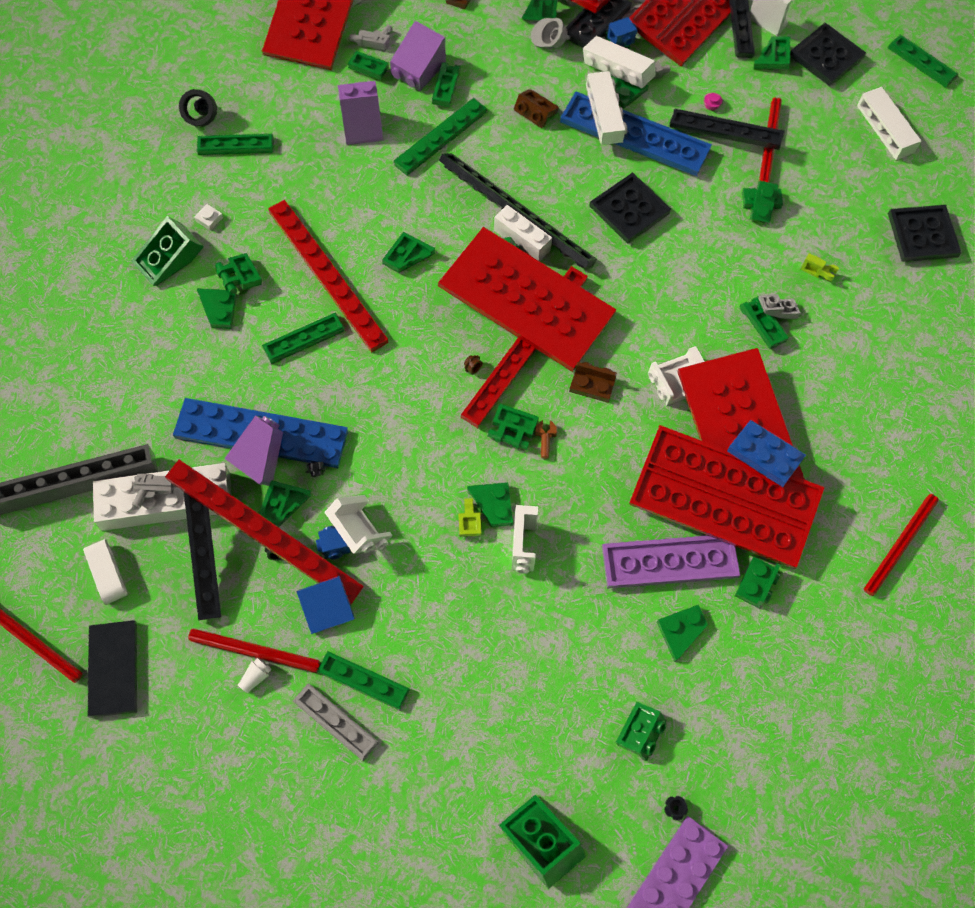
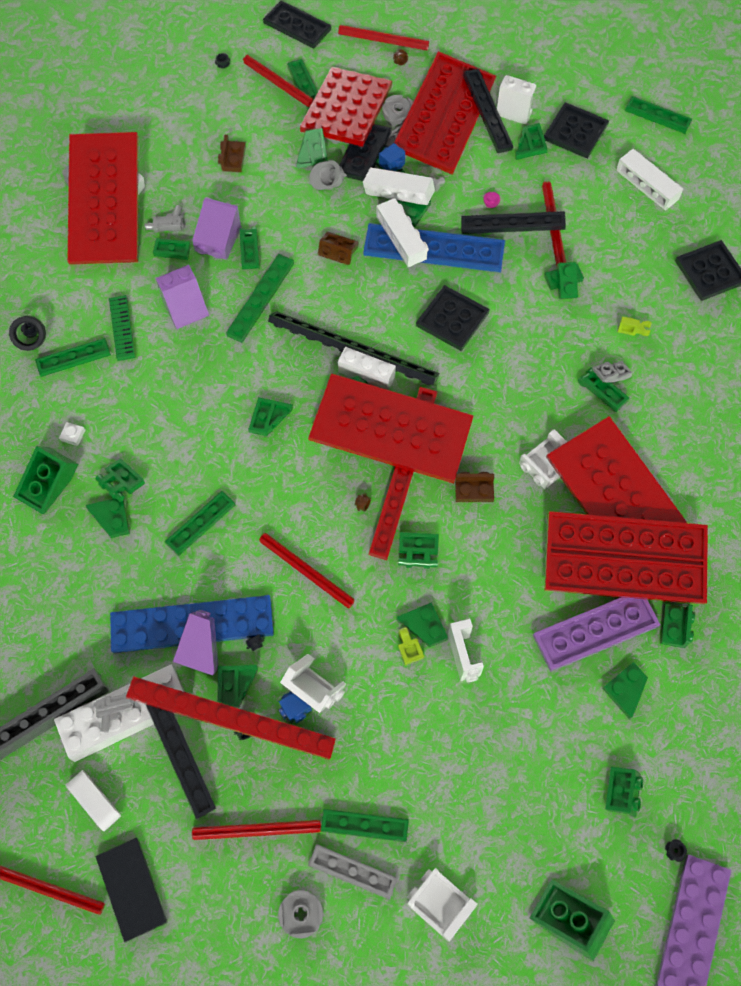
camera: 15 degrees left, 0 degrees up
(255, 674) = (265, 852): white cone -> none
(275, 757) = (291, 905): none -> light grey plate
(292, 129) = (122, 328): none -> green tile
(325, 604) = (308, 767): blue tile -> none
(328, 276) = (202, 458): red plate -> none
(393, 415) = (307, 570): none -> red axle
(412, 781) = (440, 904): none -> white panel
(545, 437) = (450, 551): dark orange bar -> none
(766, 453) = (649, 509): blue plate -> none

